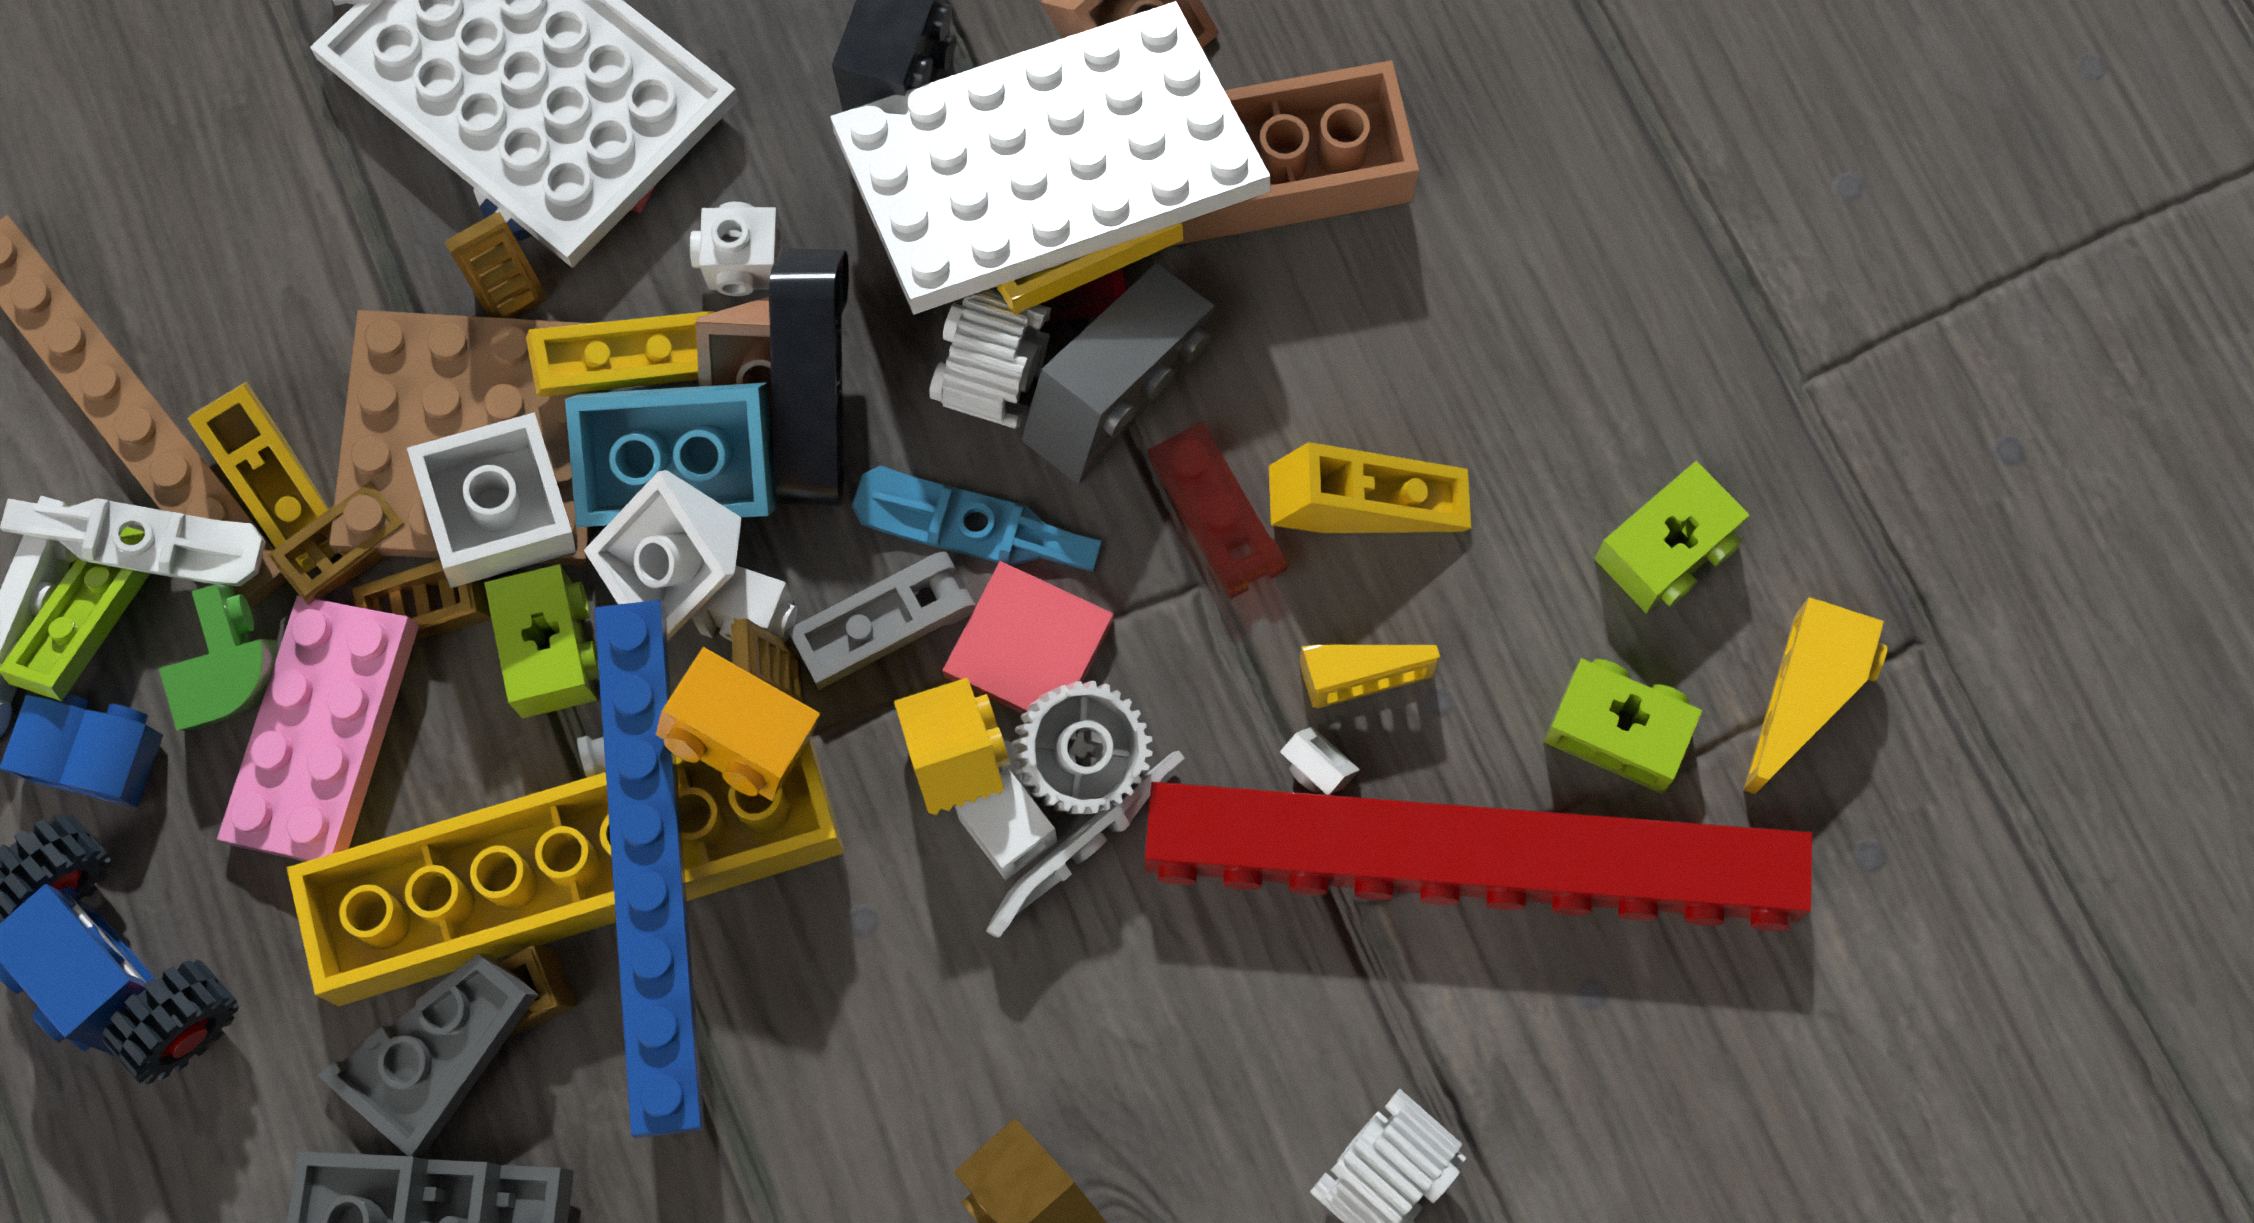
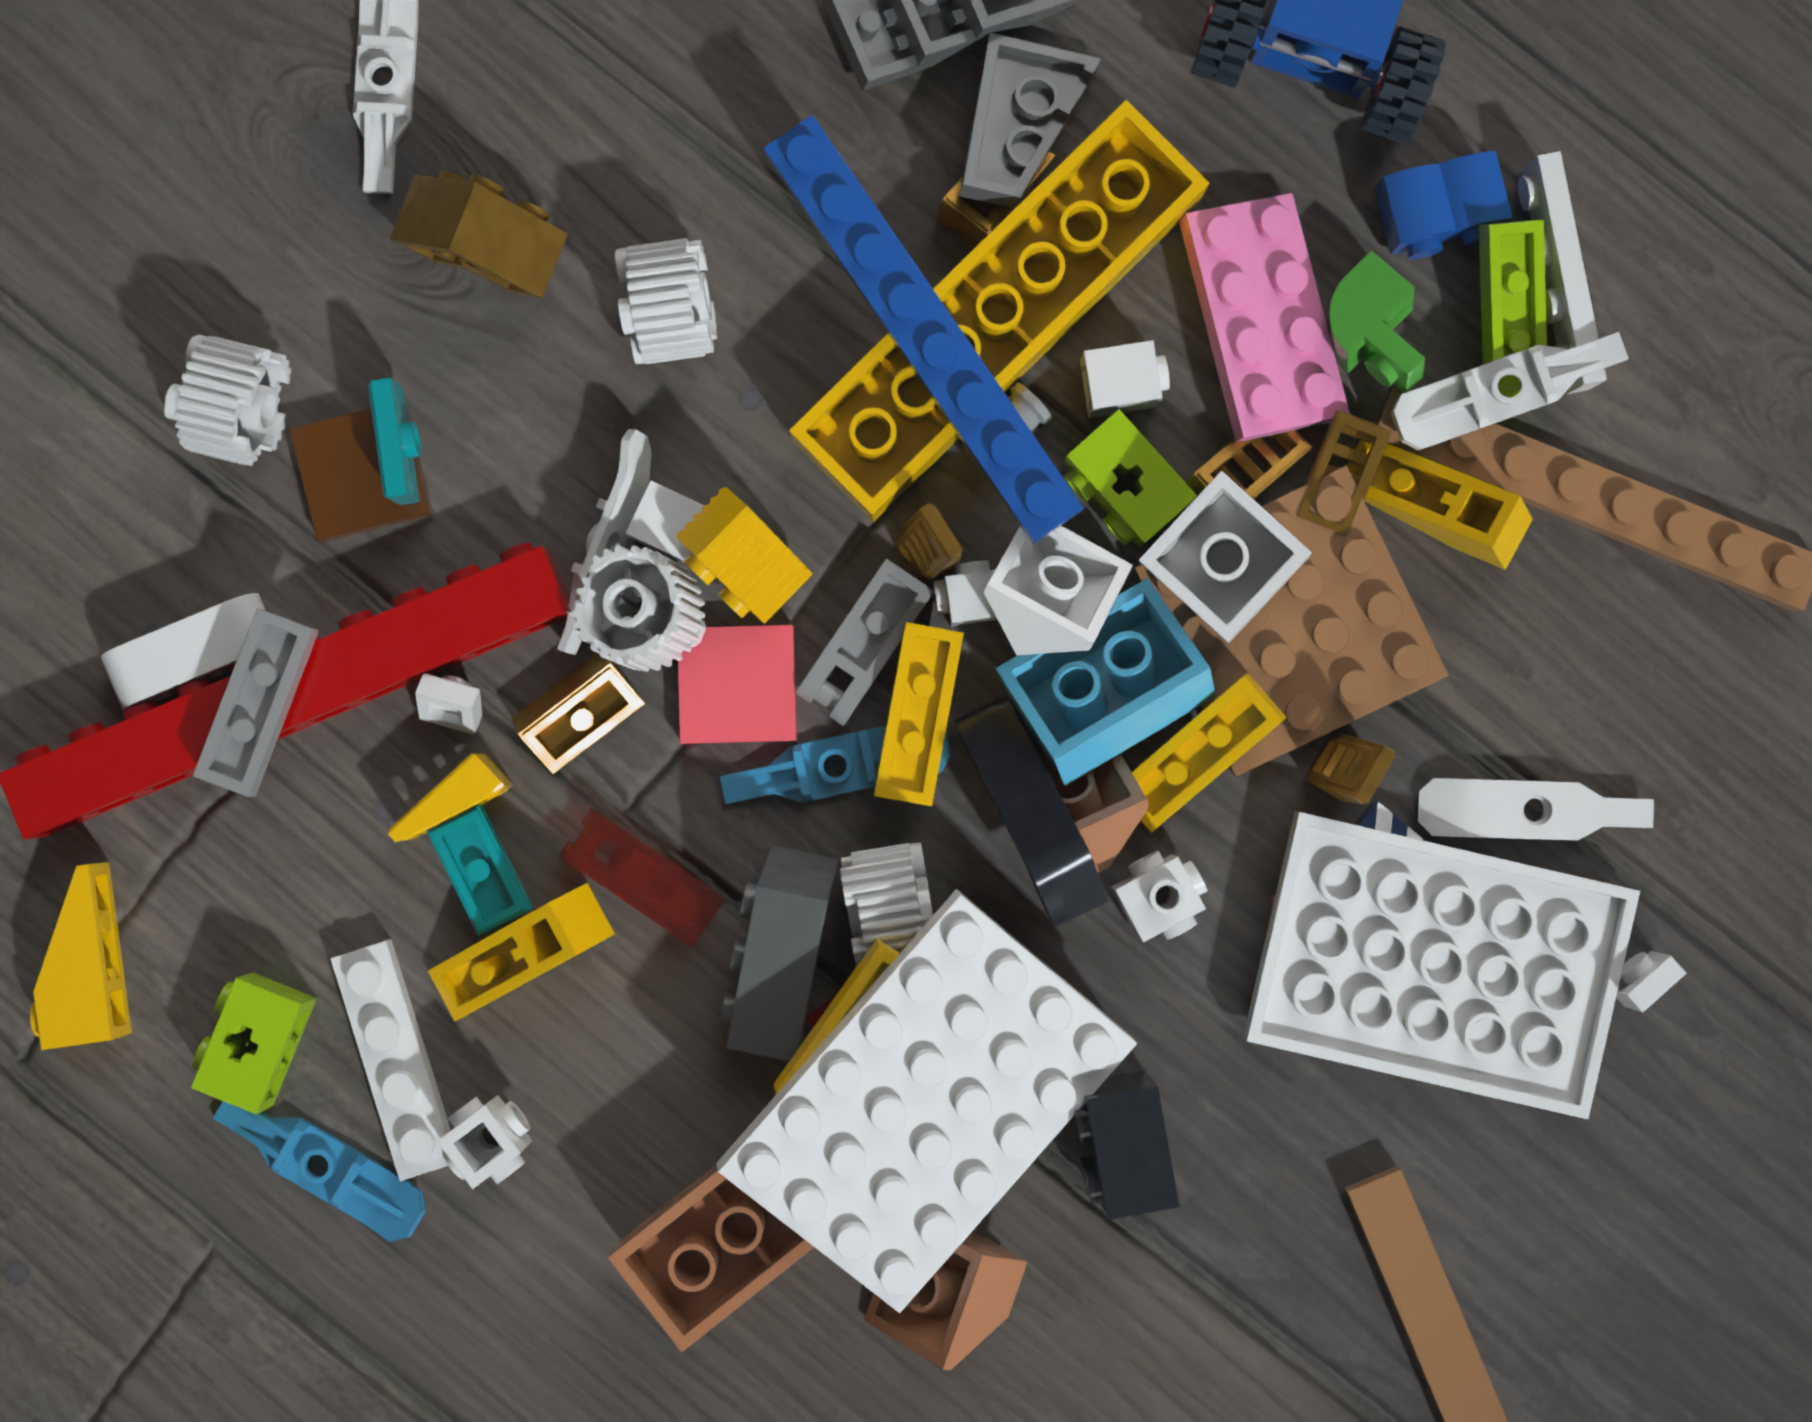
camera: 150 degrees right, 15 degrees up
(390, 184) = (1497, 809): none -> white piece
(489, 740) = (1123, 378): none -> white brick
(736, 725) = (906, 463): light orange brick -> none
(867, 519) = (918, 714): none -> yellow plate
(885, 1040) = (666, 301): none -> white brick
(1200, 700) = (576, 711): none -> pearl gold slope
(1237, 1040) = (396, 441): none -> teal plate
(1295, 1045) = (344, 478): none -> reddish brown tile
(1370, 587) = (480, 869): none -> teal plate
(1487, 337) = (471, 1155): none -> white brick
(1506, 839) = (255, 703): none -> light grey plate
(1542, 463) = (393, 1057): none -> white plate
(1558, 945) = (181, 652): none -> white beam
(1589, 719) = (187, 855): lime brick -> none
(1637, 373) = (352, 1179): none -> dark azure piece

